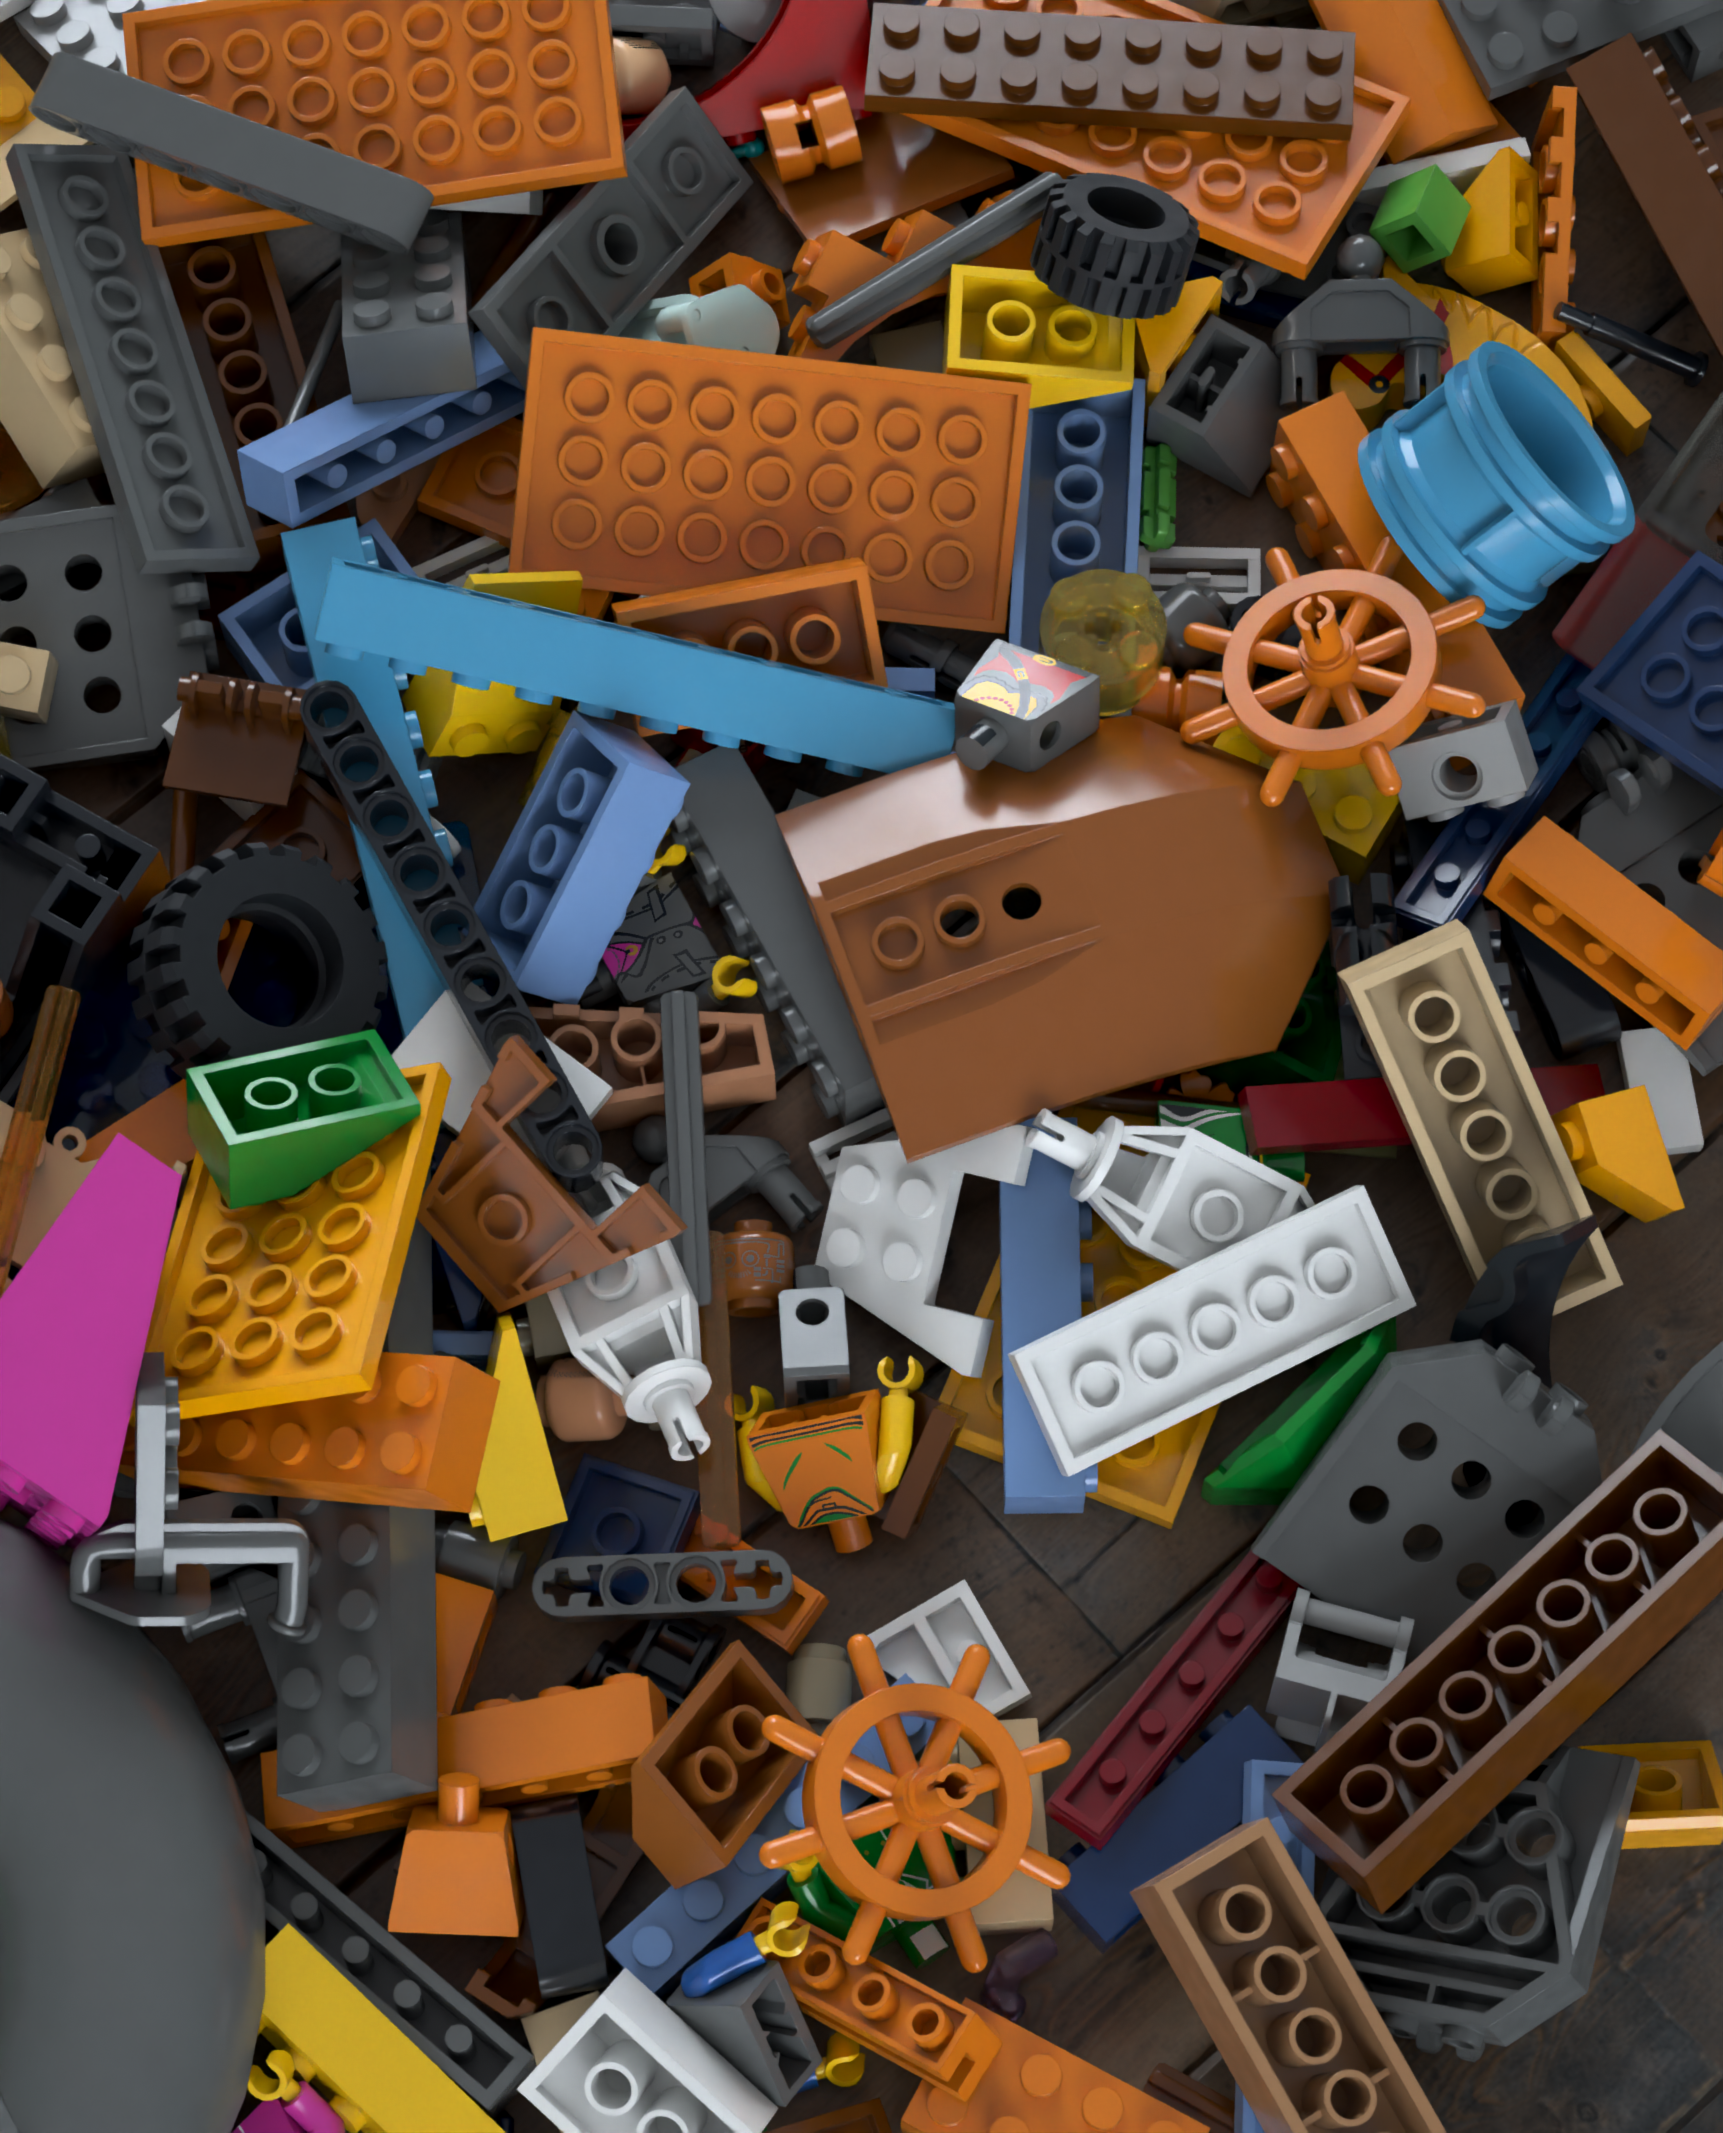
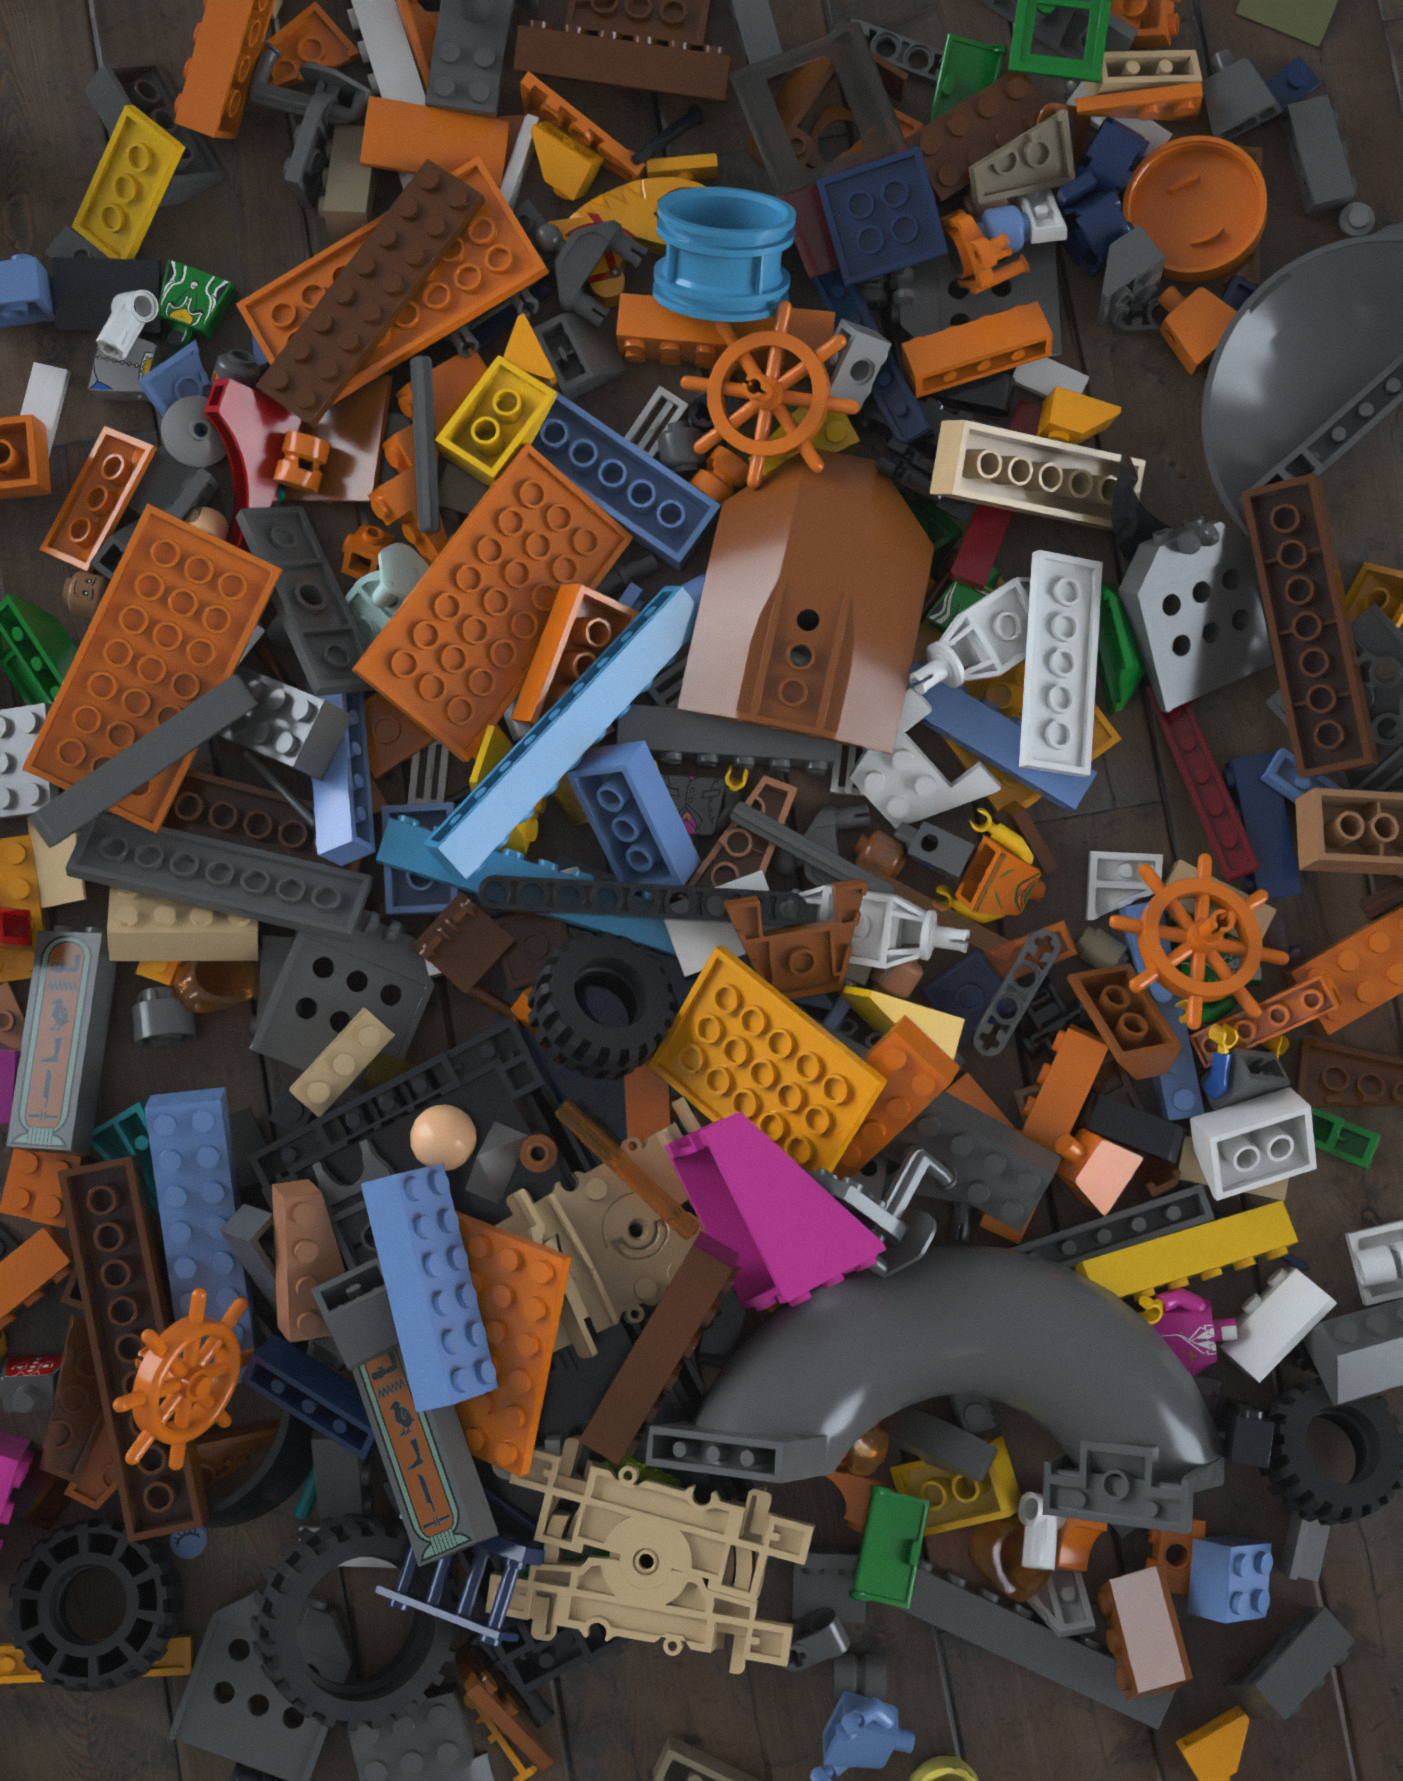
camera: 55 degrees left, 15 degrees up
(294, 1113) = (699, 1030): green slope -> none
(1023, 709) = (700, 556): dark grey torso -> none
(1113, 610) = (675, 474): clear yellow brick -> none
(1114, 245) = (480, 354): black tyre -> none
(1158, 498) = (605, 415): bright green axle -> none
(1322, 1694) = (1250, 722): light grey piece -> none
(1420, 218) = (543, 194): bright green brick -> none

